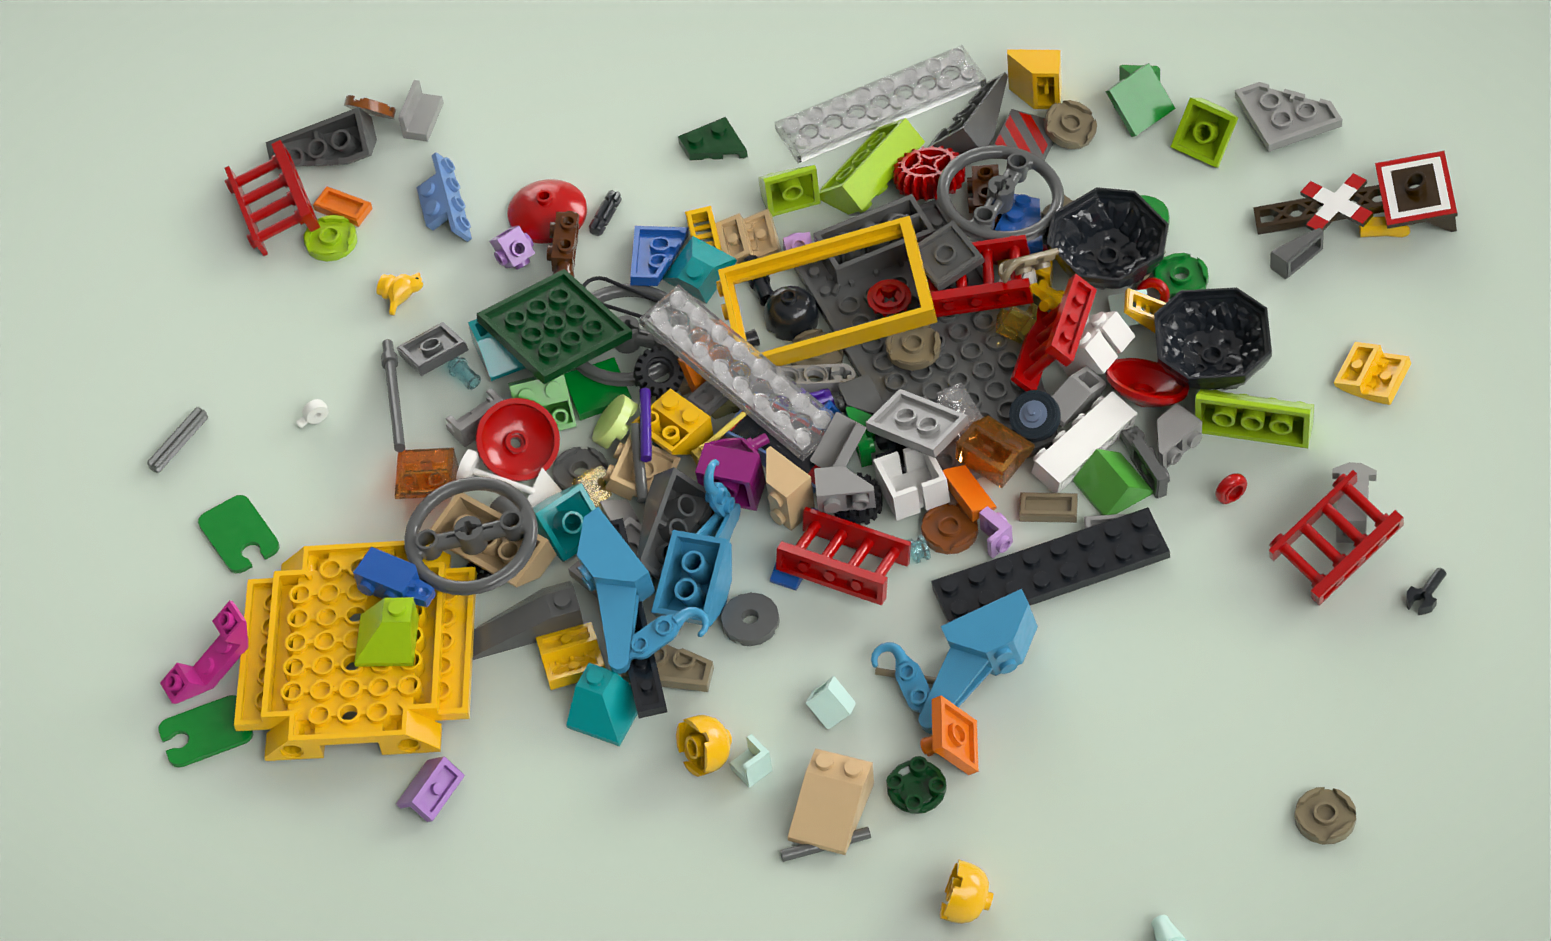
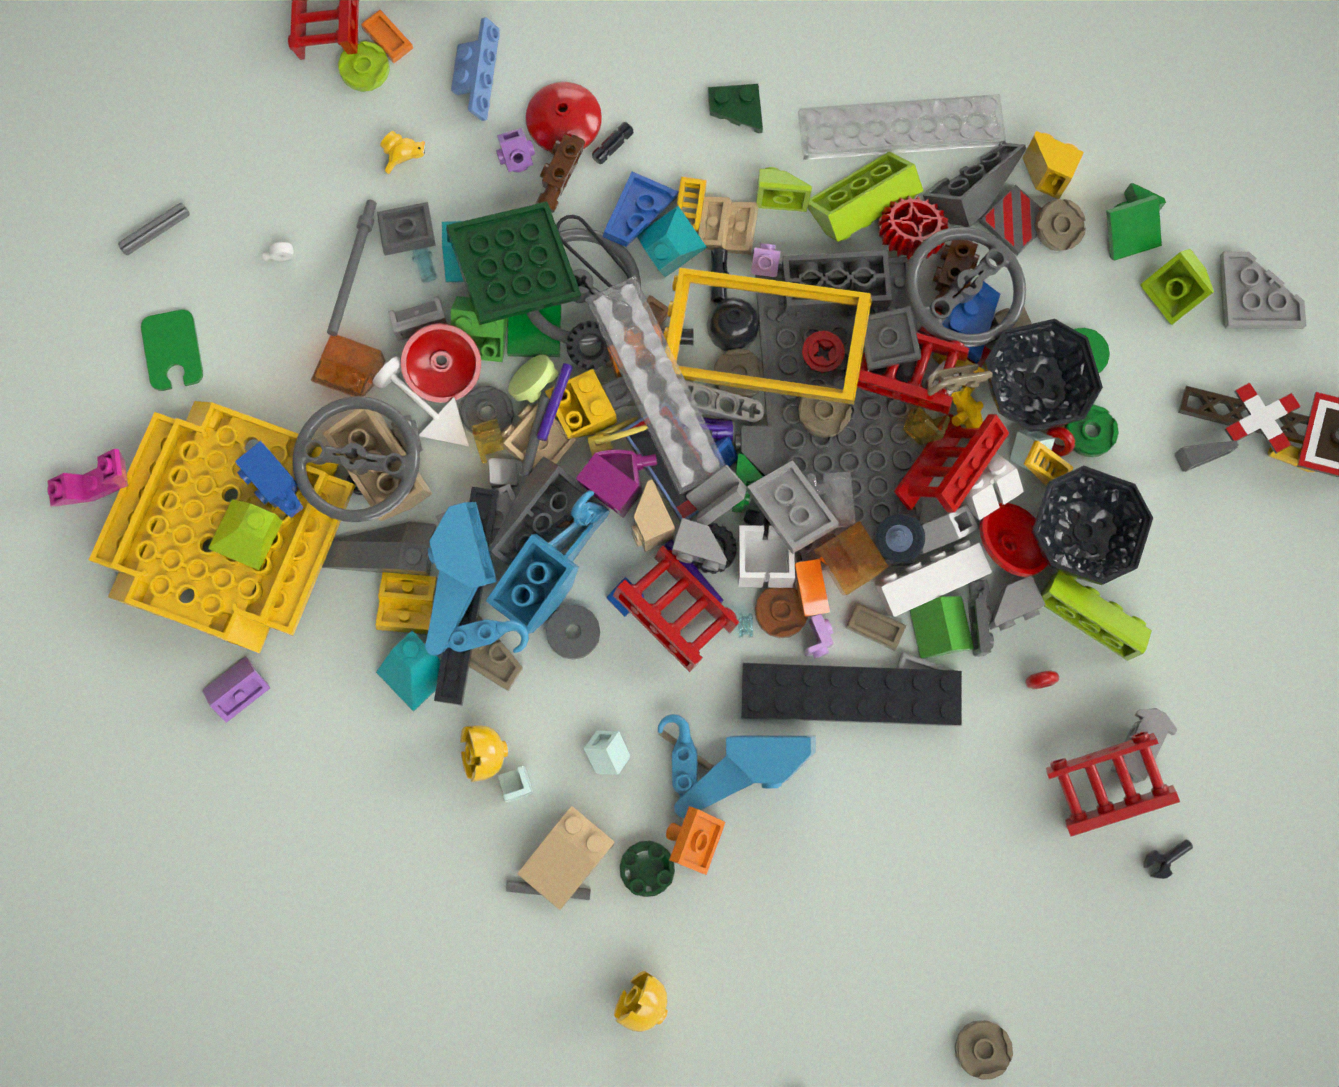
camera: 10 degrees right, 25 degrees up
(209, 731) = (73, 543): green piece -> none
(562, 518) = (453, 465): teal slope -> none
(1372, 373) = (1217, 608): yellow slope -> none

